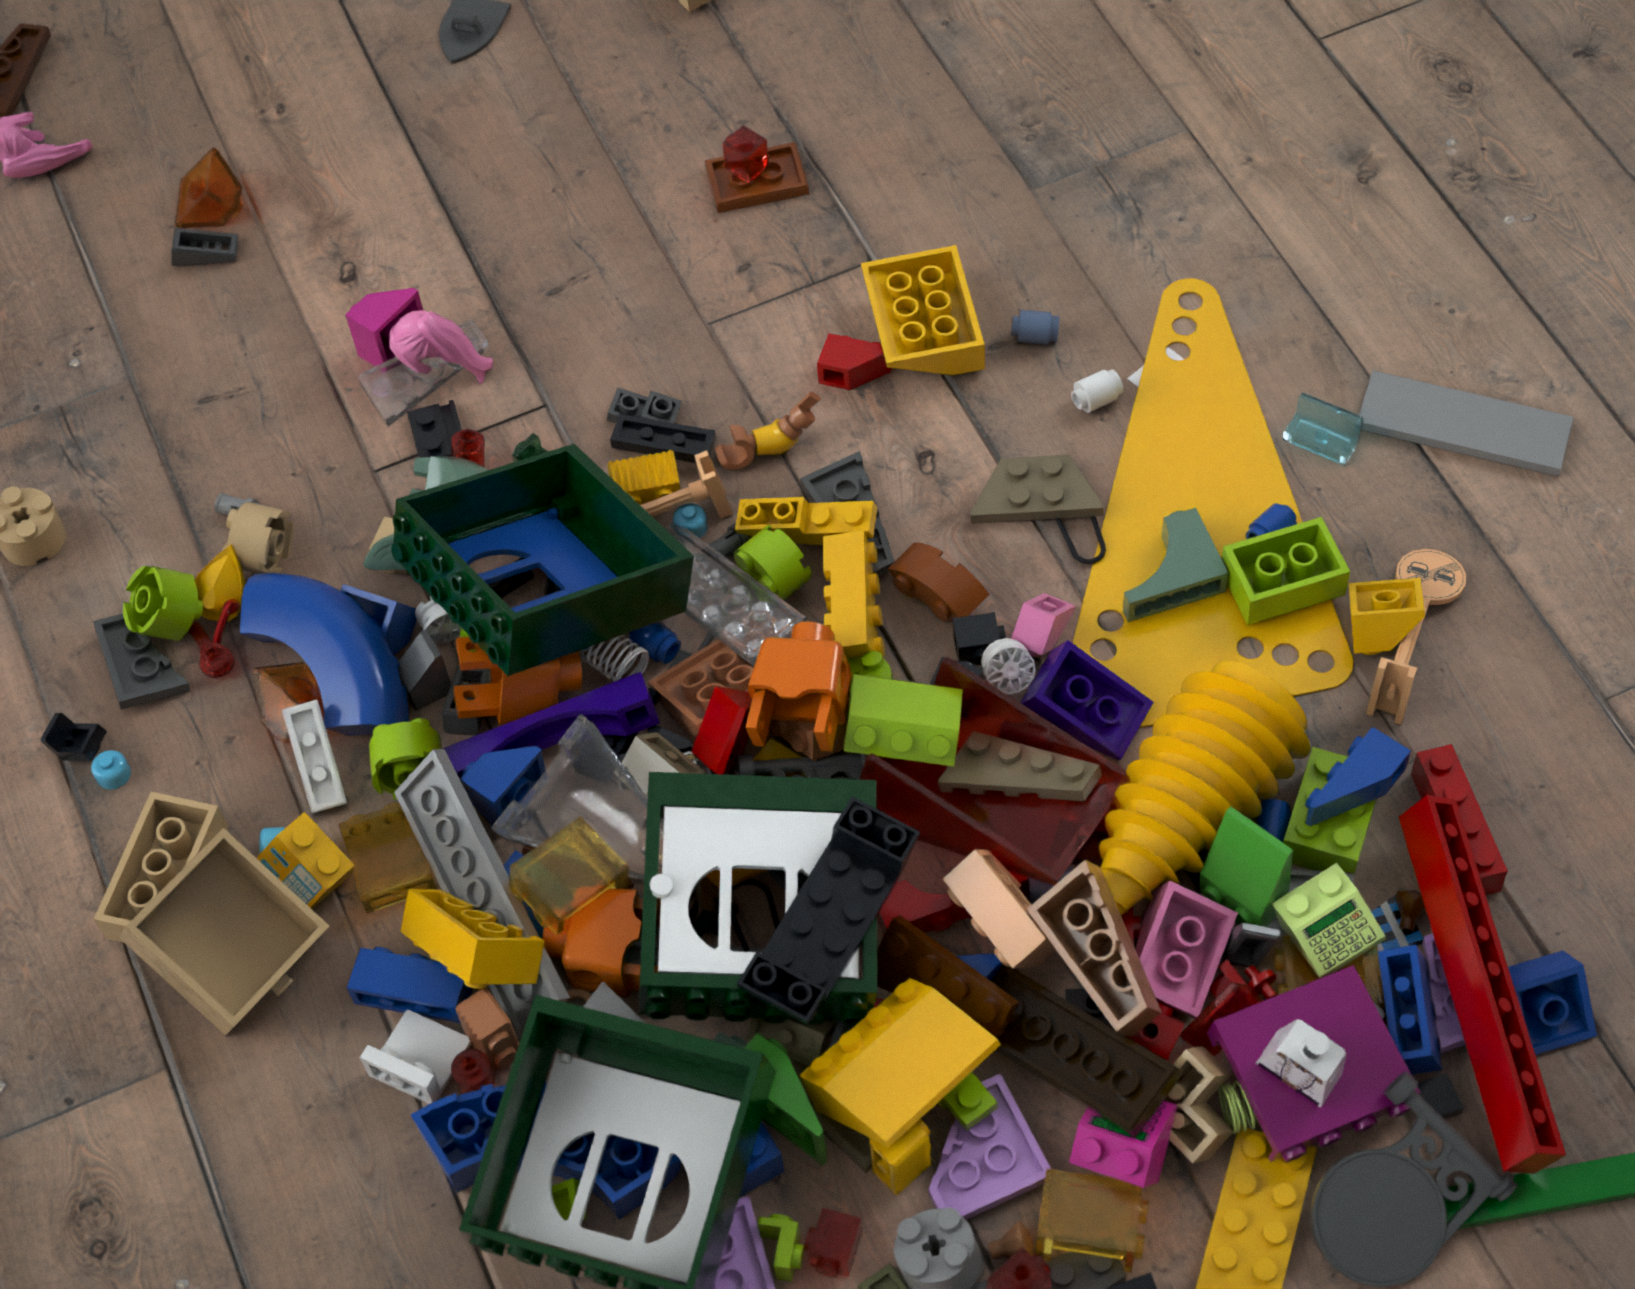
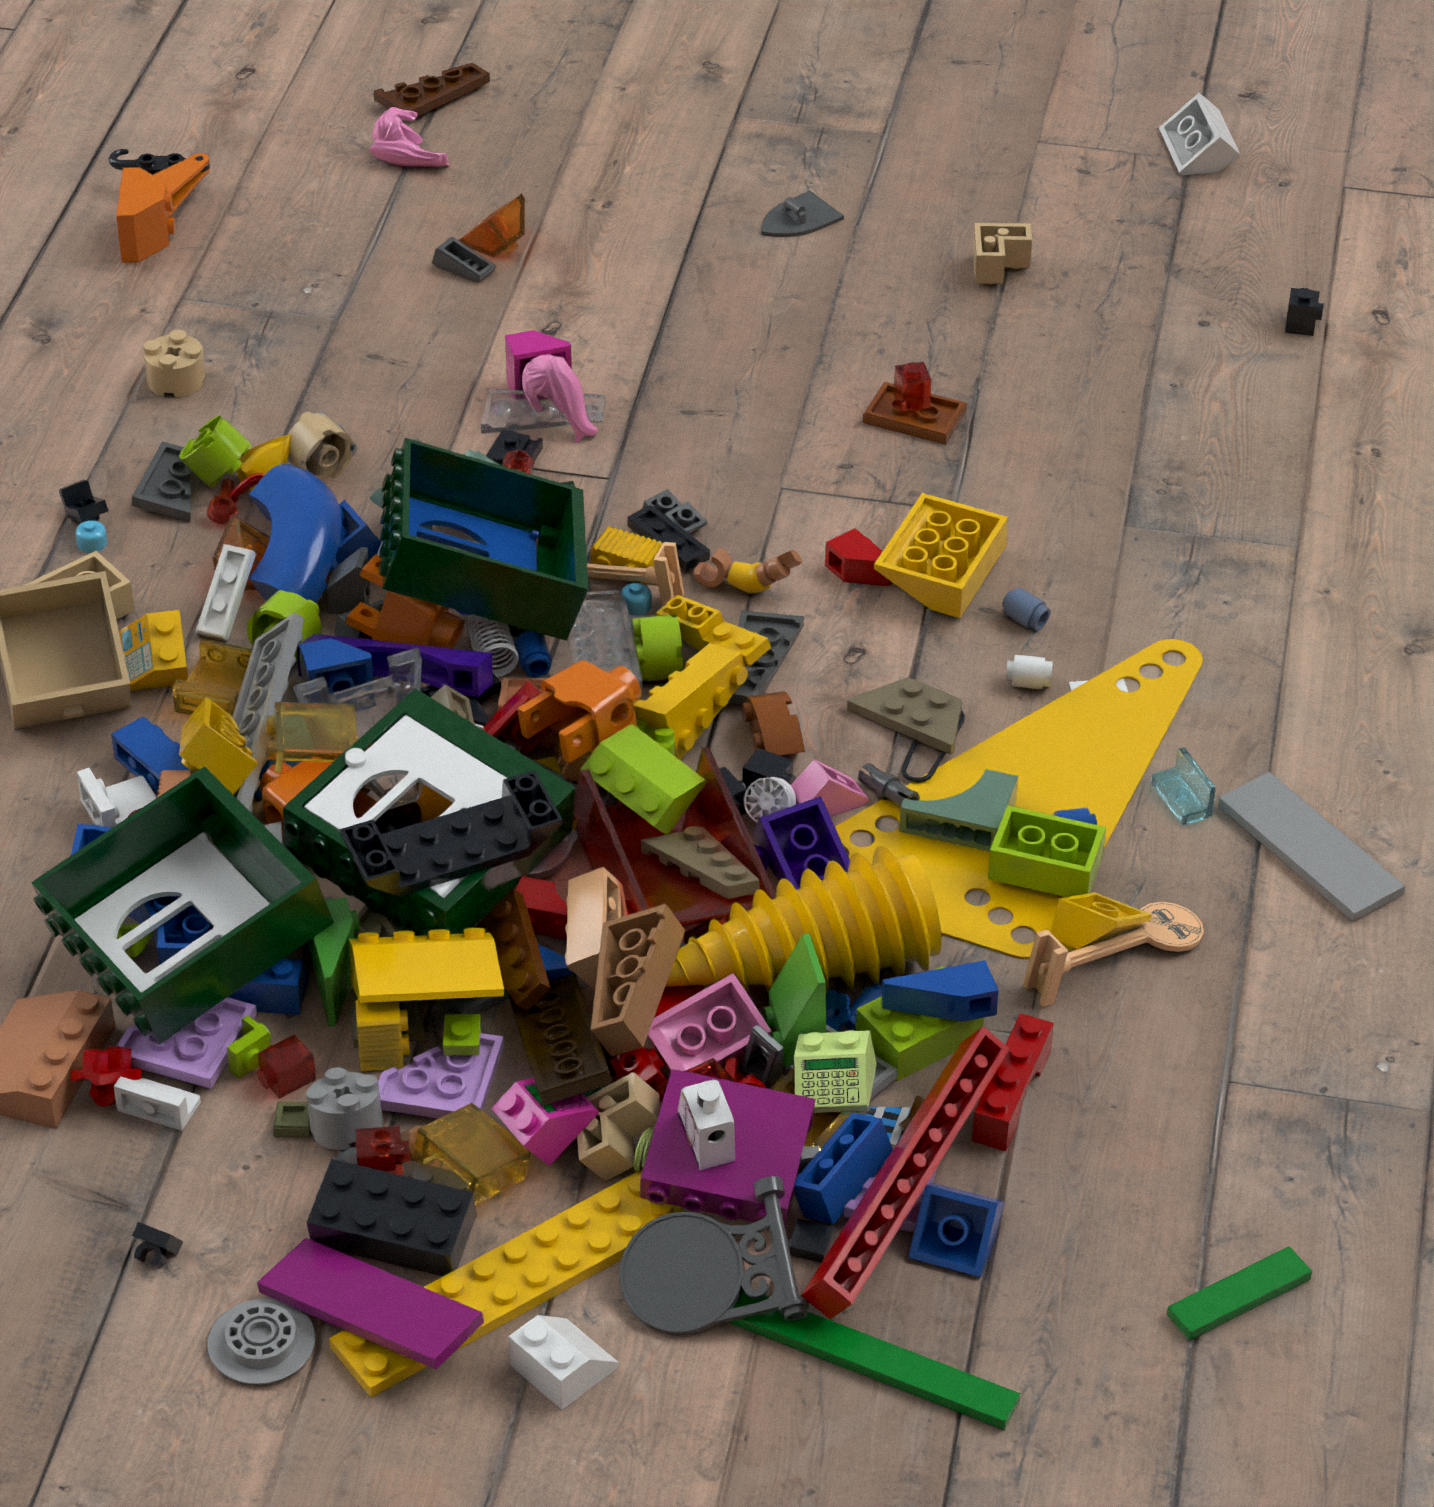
camera: 30 degrees right, 15 degrees down
(1085, 584) = (886, 785): none -> dark grey pin

